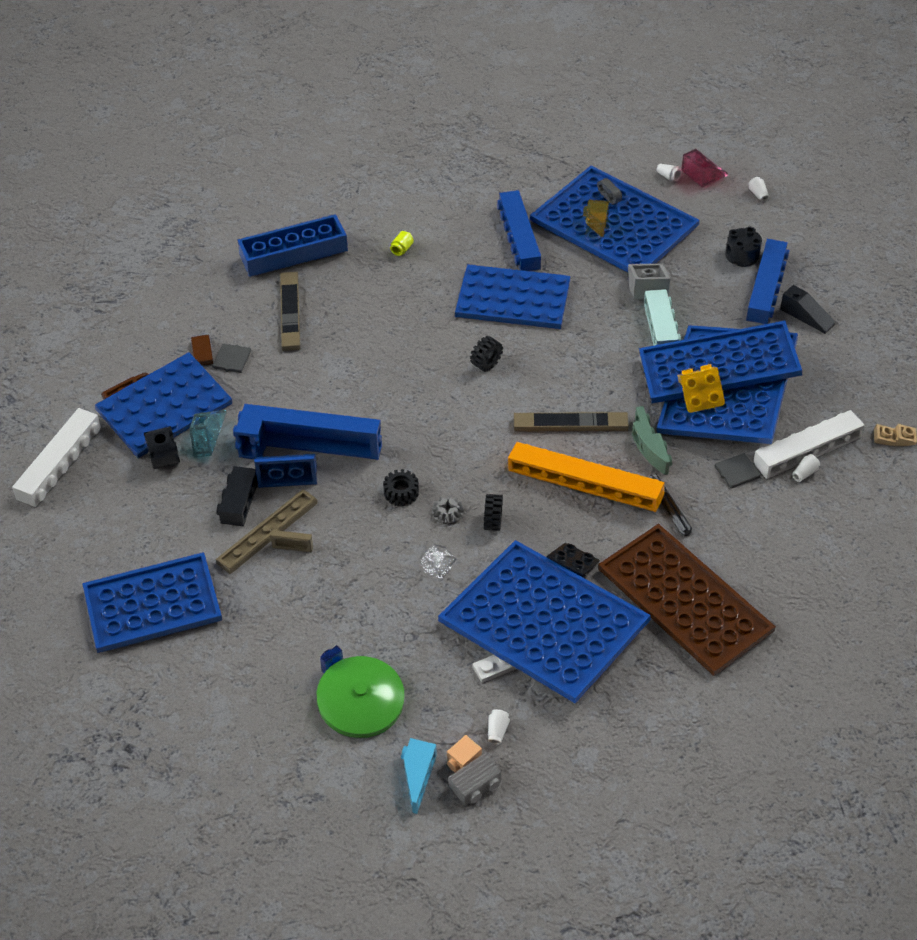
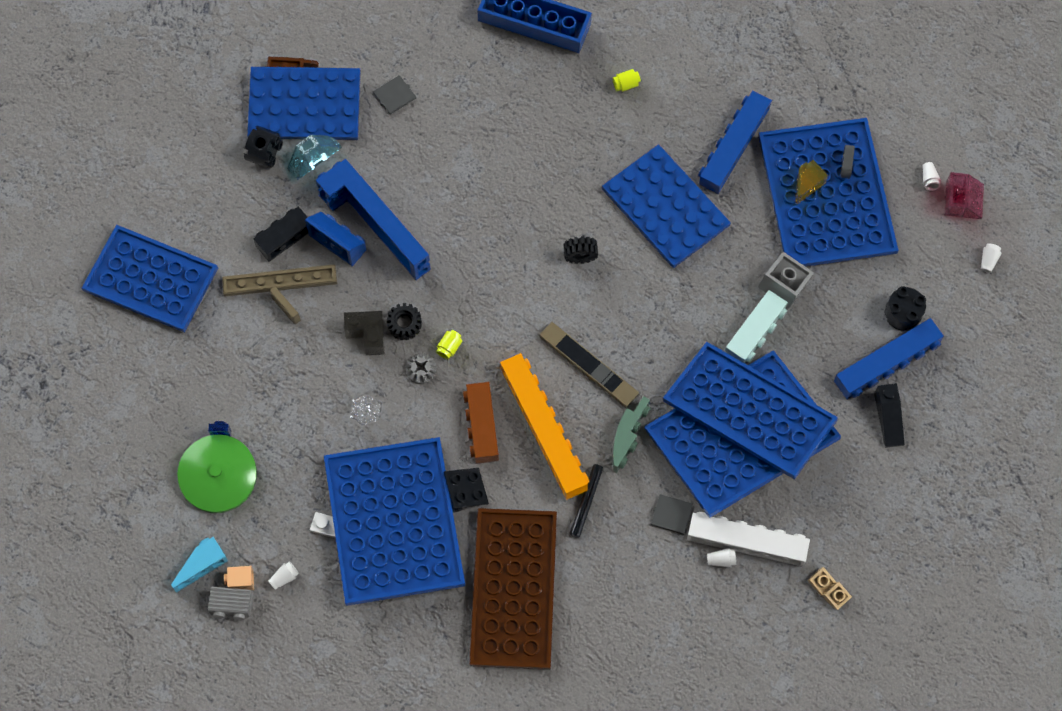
camera: 40 degrees right, 20 degrees up
(56, 457) = (190, 93): white brick -> none
(202, 349) = (378, 70): reddish brown tile -> none
(290, 311) = (478, 81): tile -> none
(376, 508) = (367, 326): none -> clear smoke brick
(453, 477) = (449, 344): none -> neon yellow brick
(493, 512) = (443, 401): black tyre -> none
(537, 509) = (482, 422): none -> dark orange brick
(701, 388) = (705, 422): yellow bracket -> none

